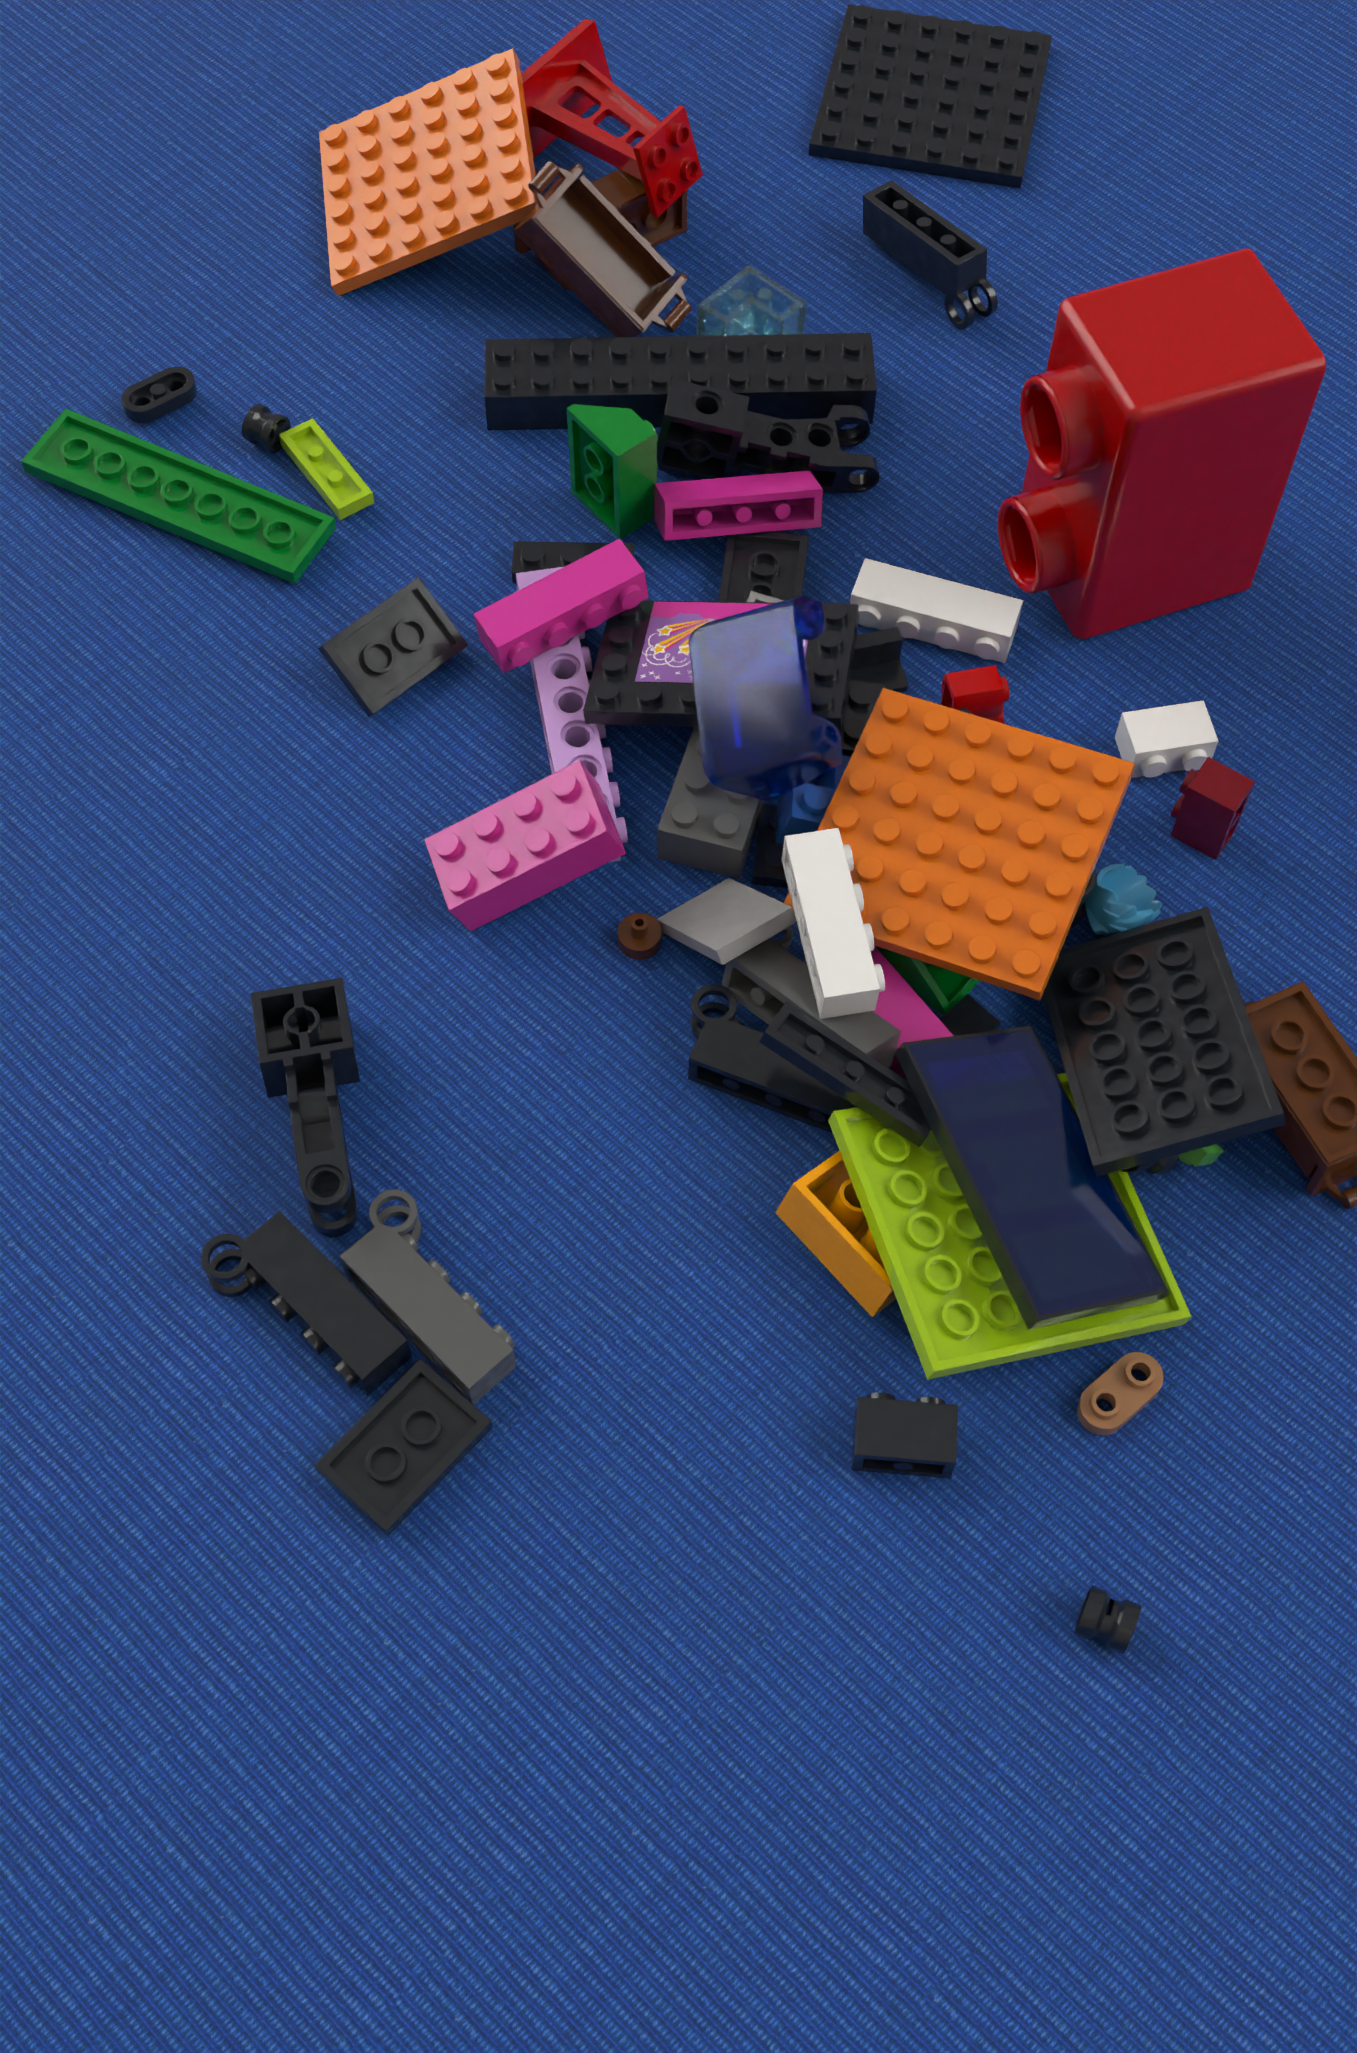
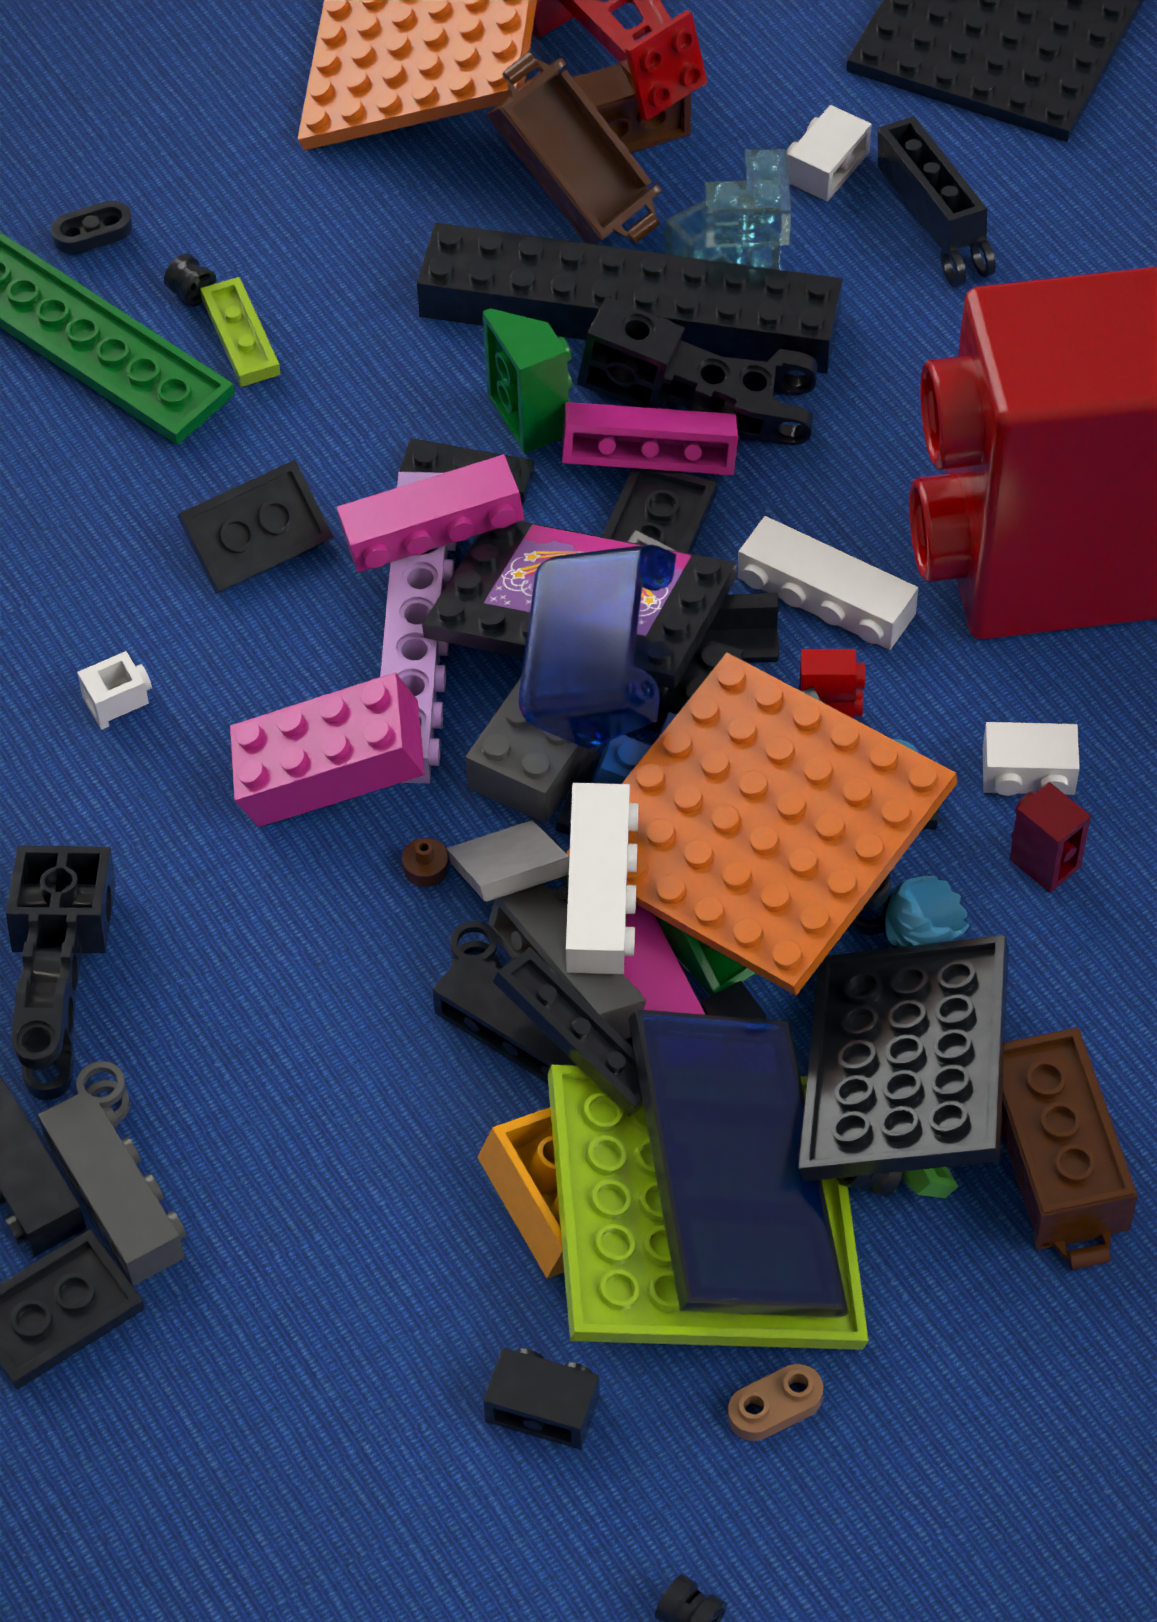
camera: 15 degrees right, 5 degrees down
(298, 823) = (114, 688): none -> white brick
(779, 279) = (752, 209): none -> clear light blue brick
(817, 226) = (828, 152): none -> white brick

